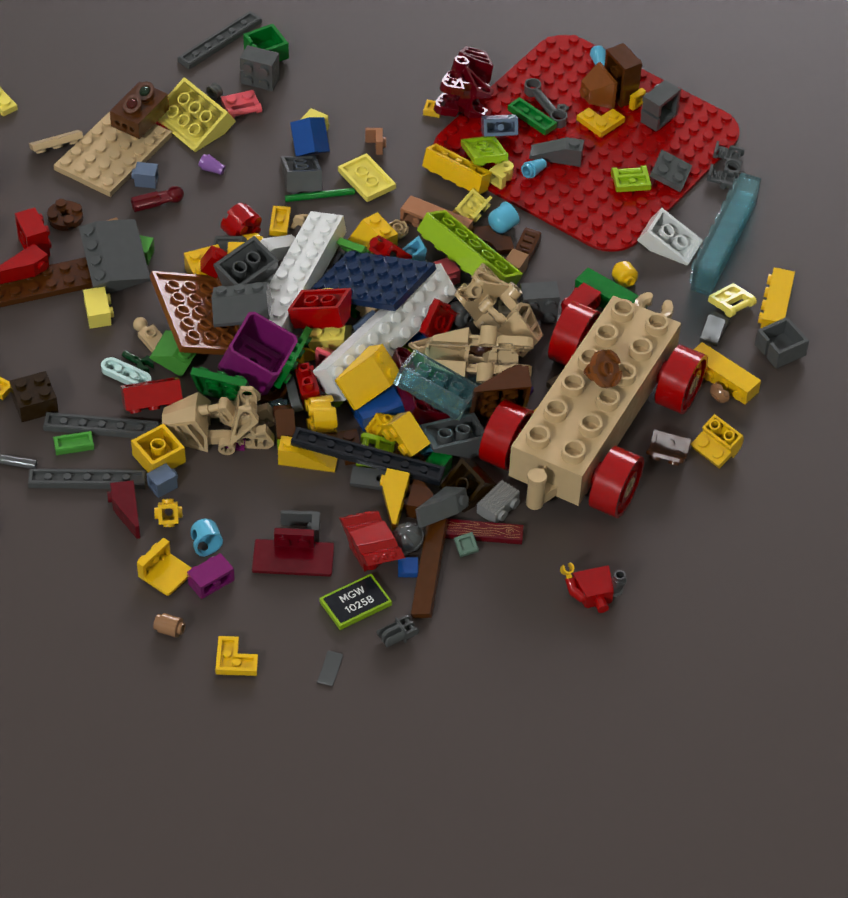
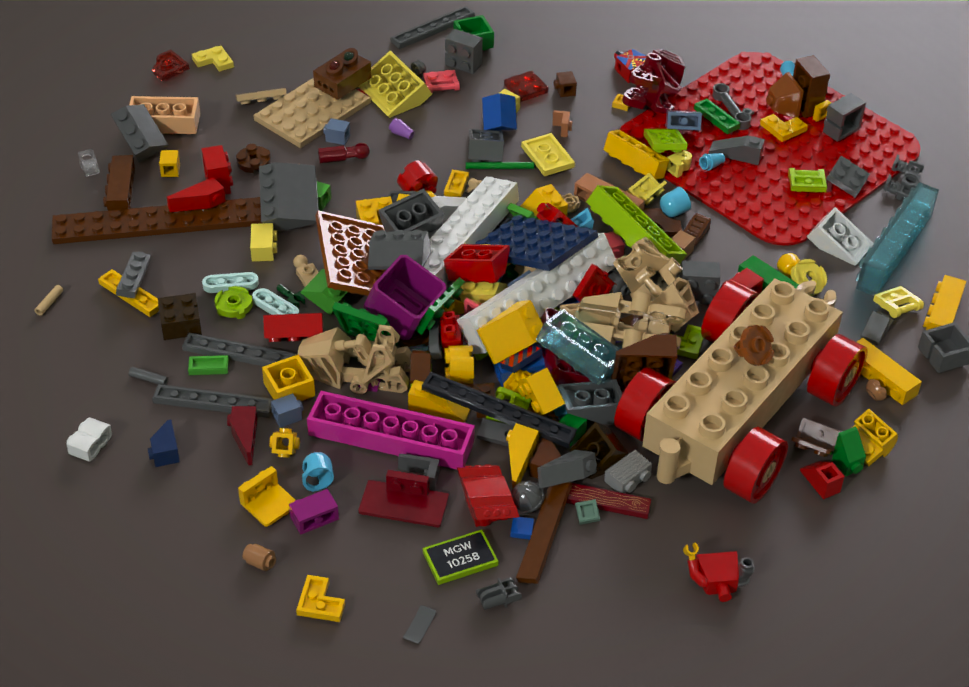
camera: 10 degrees right, 5 degrees down
(52, 530) = (164, 446): none -> dark blue slope
(74, 354) = (220, 282): none -> light aqua plate
(83, 383) = (226, 307): none -> lime plate
(210, 257) = (381, 202): red brick -> none
(266, 487) = (390, 429): none -> dark pink brick
(330, 100) = (526, 85): none -> clear red plate
(372, 94) = (565, 84): none -> reddish brown brick
(380, 402) = (521, 358): none -> dark blue tile
(435, 63) = (627, 62): none -> red torso
(540, 364) = (691, 342): none -> lime plate
(648, 277) = (808, 266): none -> light yellow plate
(679, 485) = (824, 478): none -> red slope
(700, 458) = (849, 452): none -> green slope

